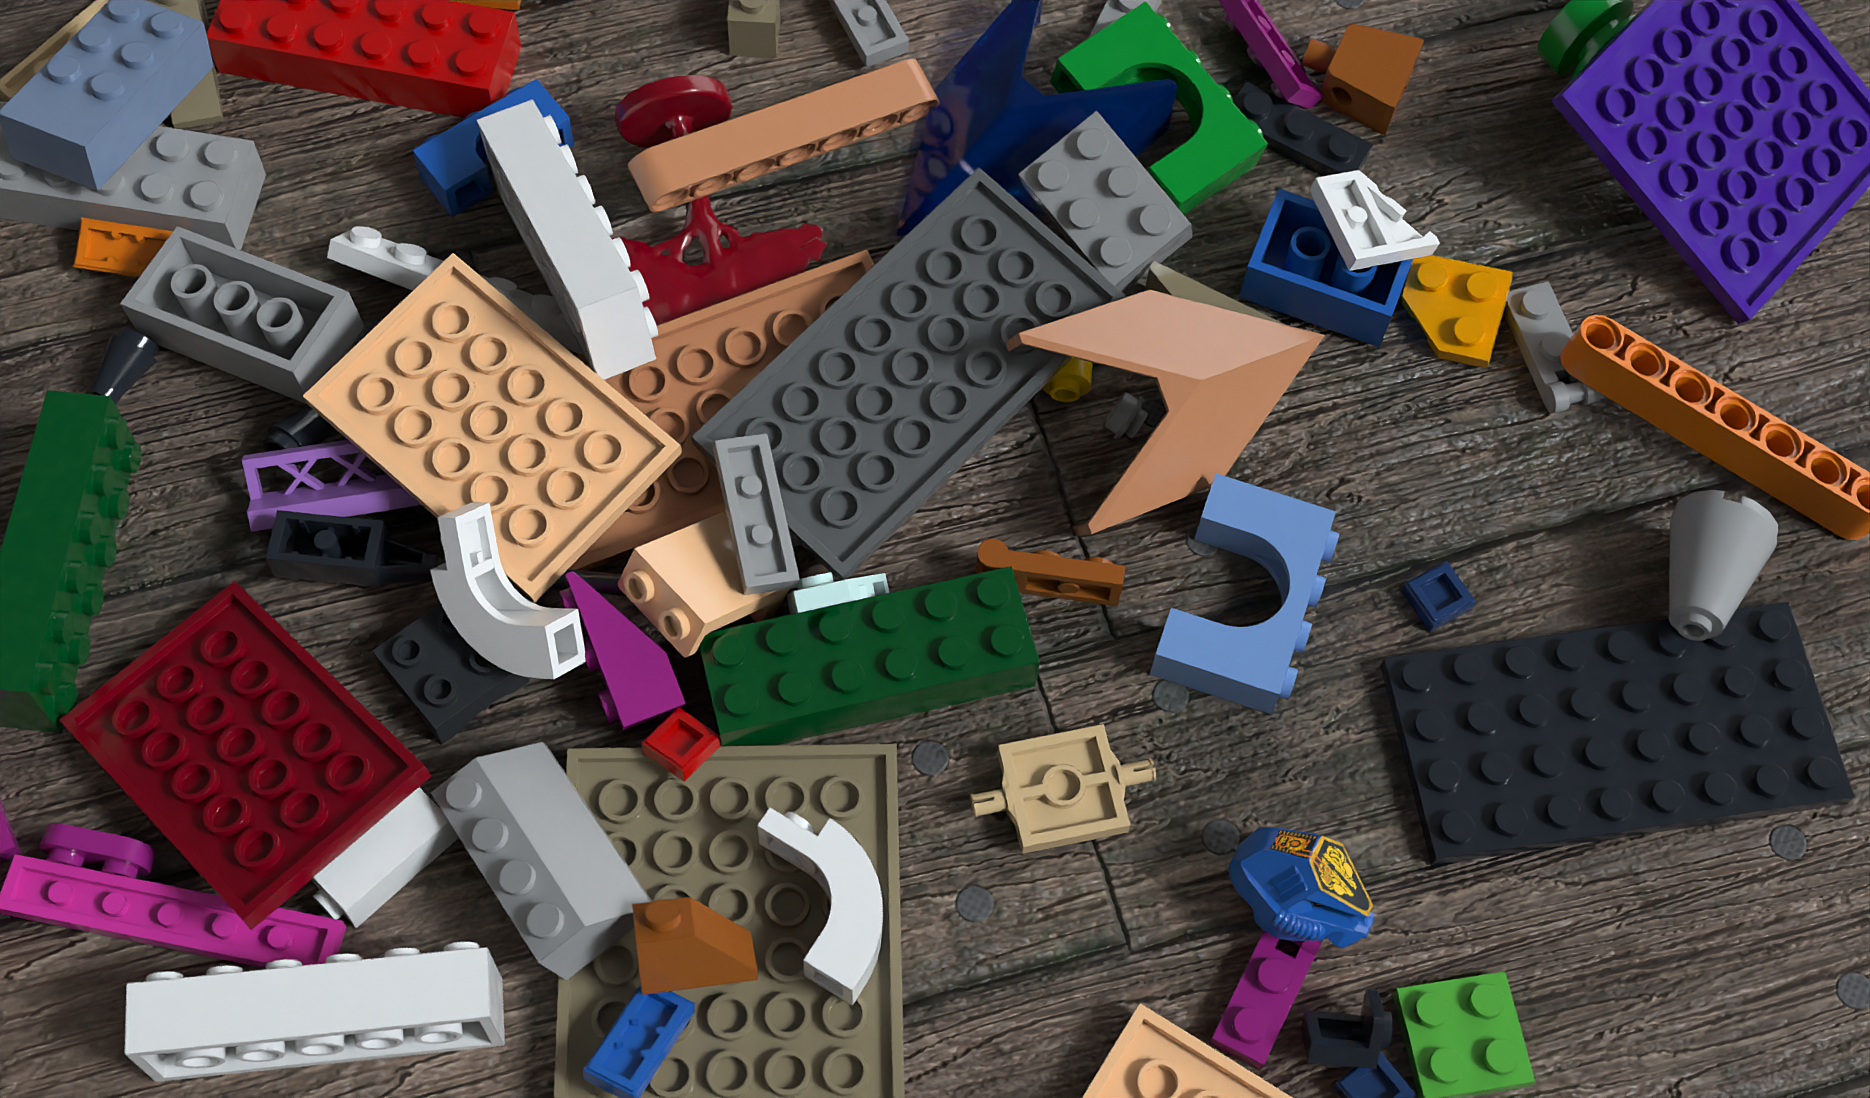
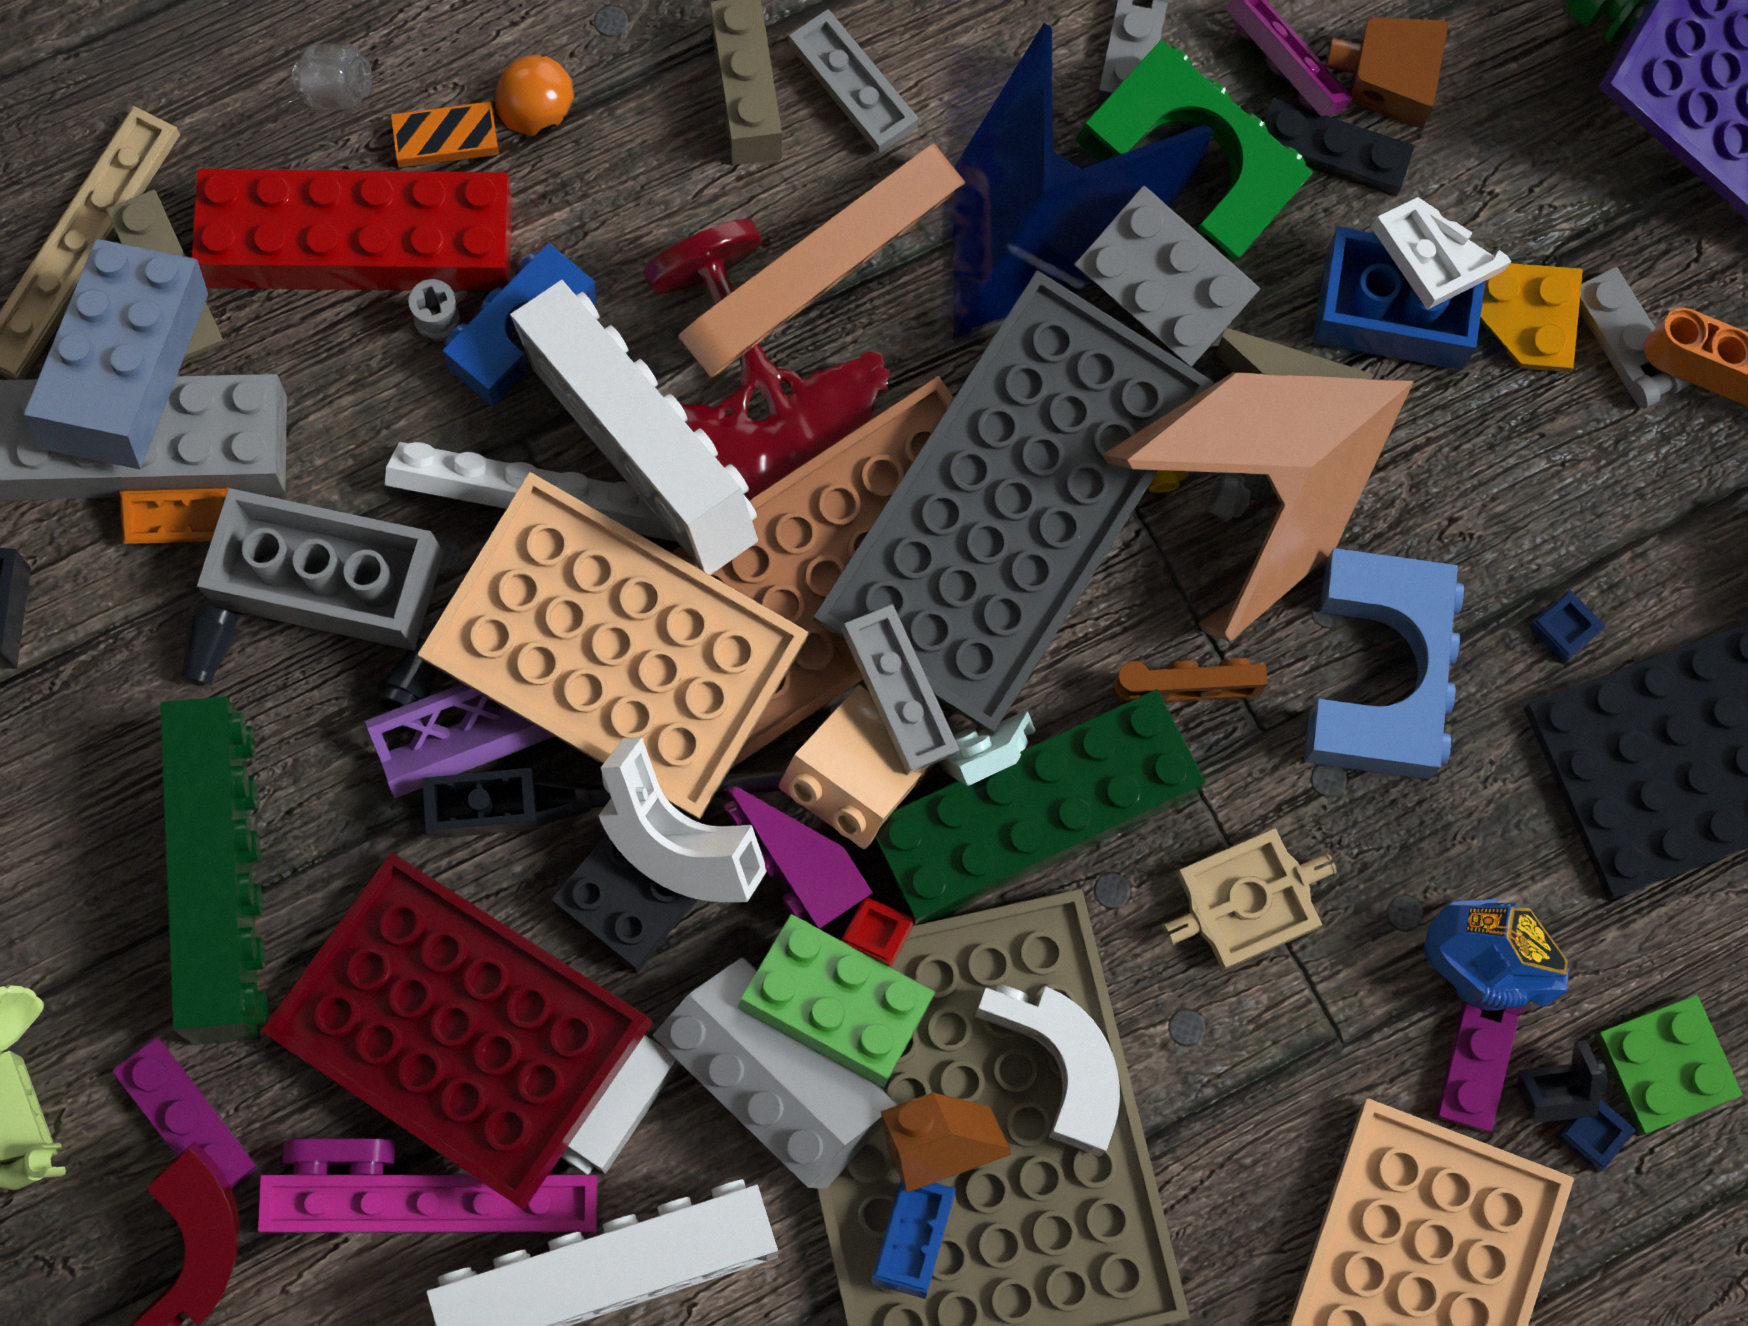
camera: 15 degrees left, 10 degrees up
(417, 115) = (430, 294): none -> light grey bush
(622, 796) = (836, 1000): none -> bright green plate

